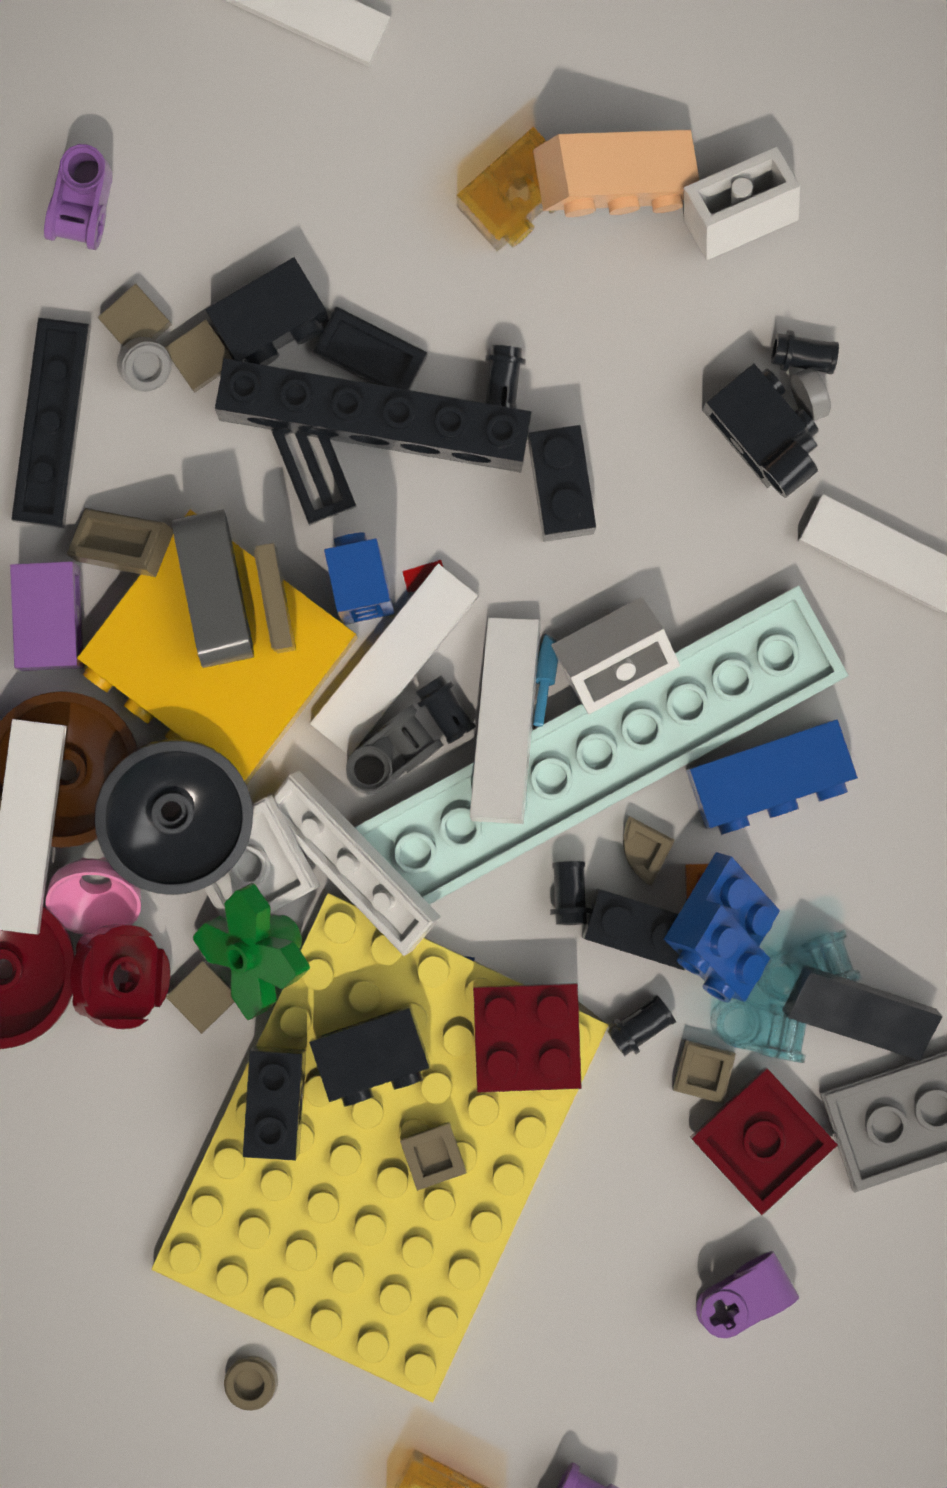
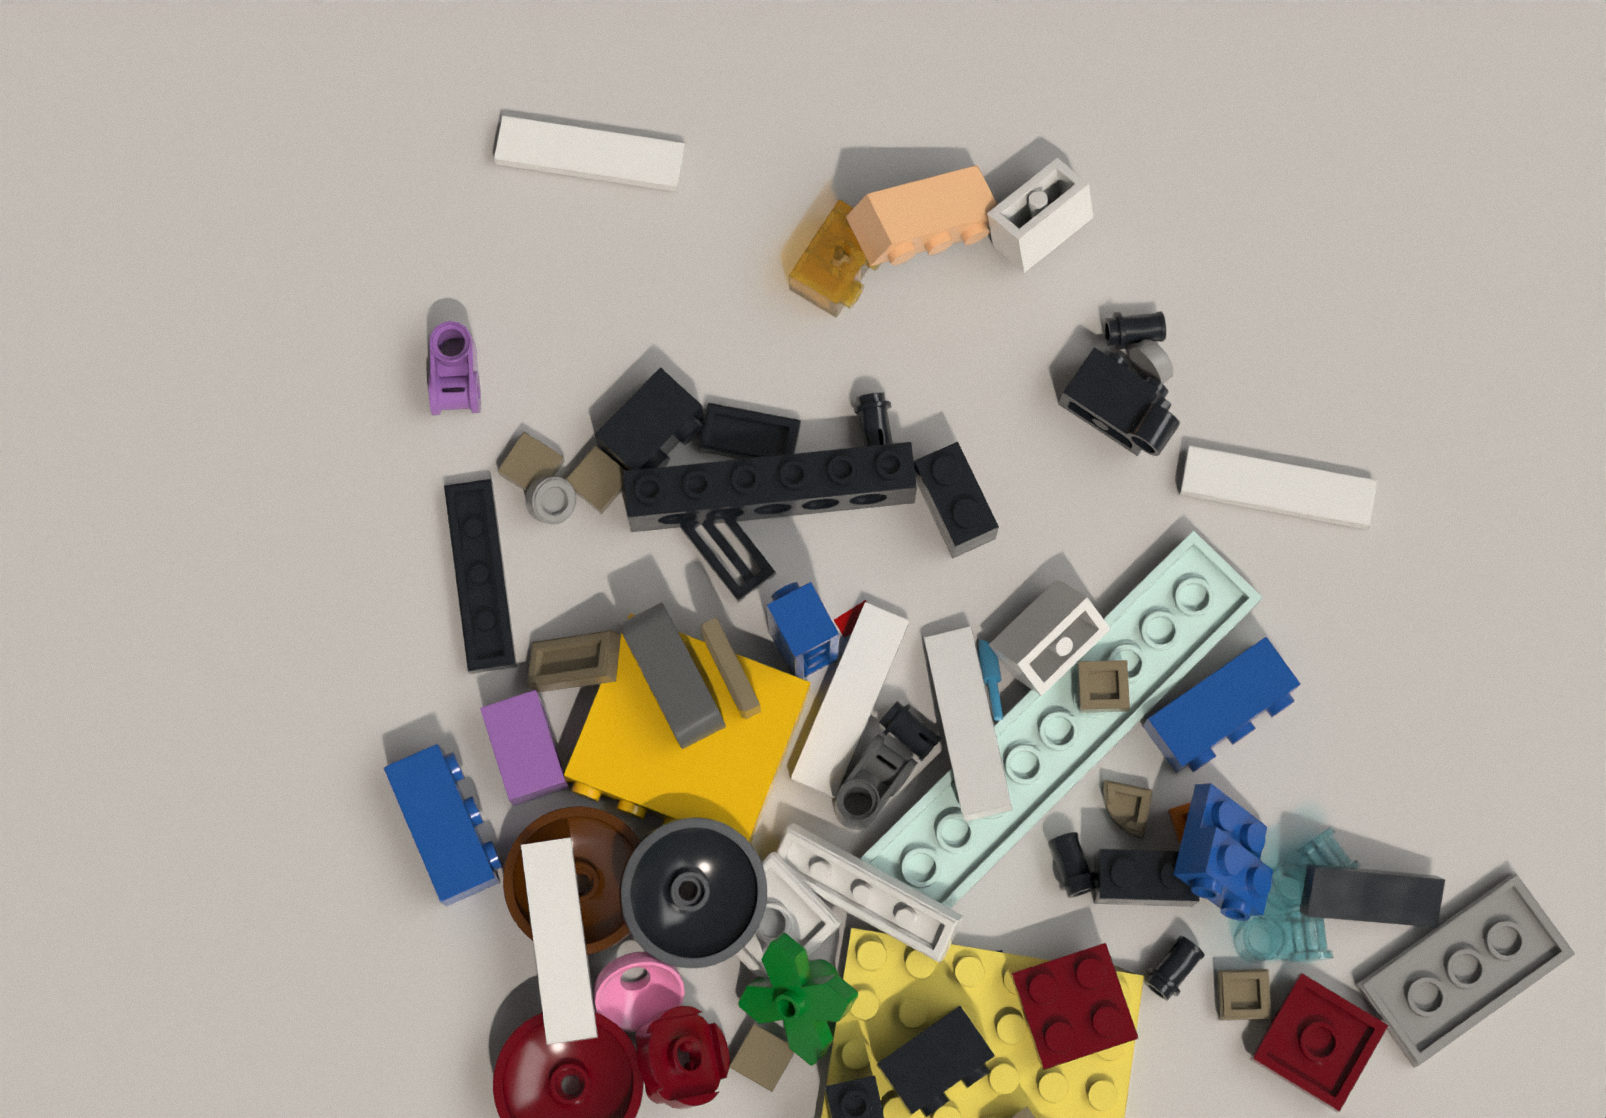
camera: 15 degrees left, 10 degrees down
(655, 722) = (1103, 686): none -> dark tan tile

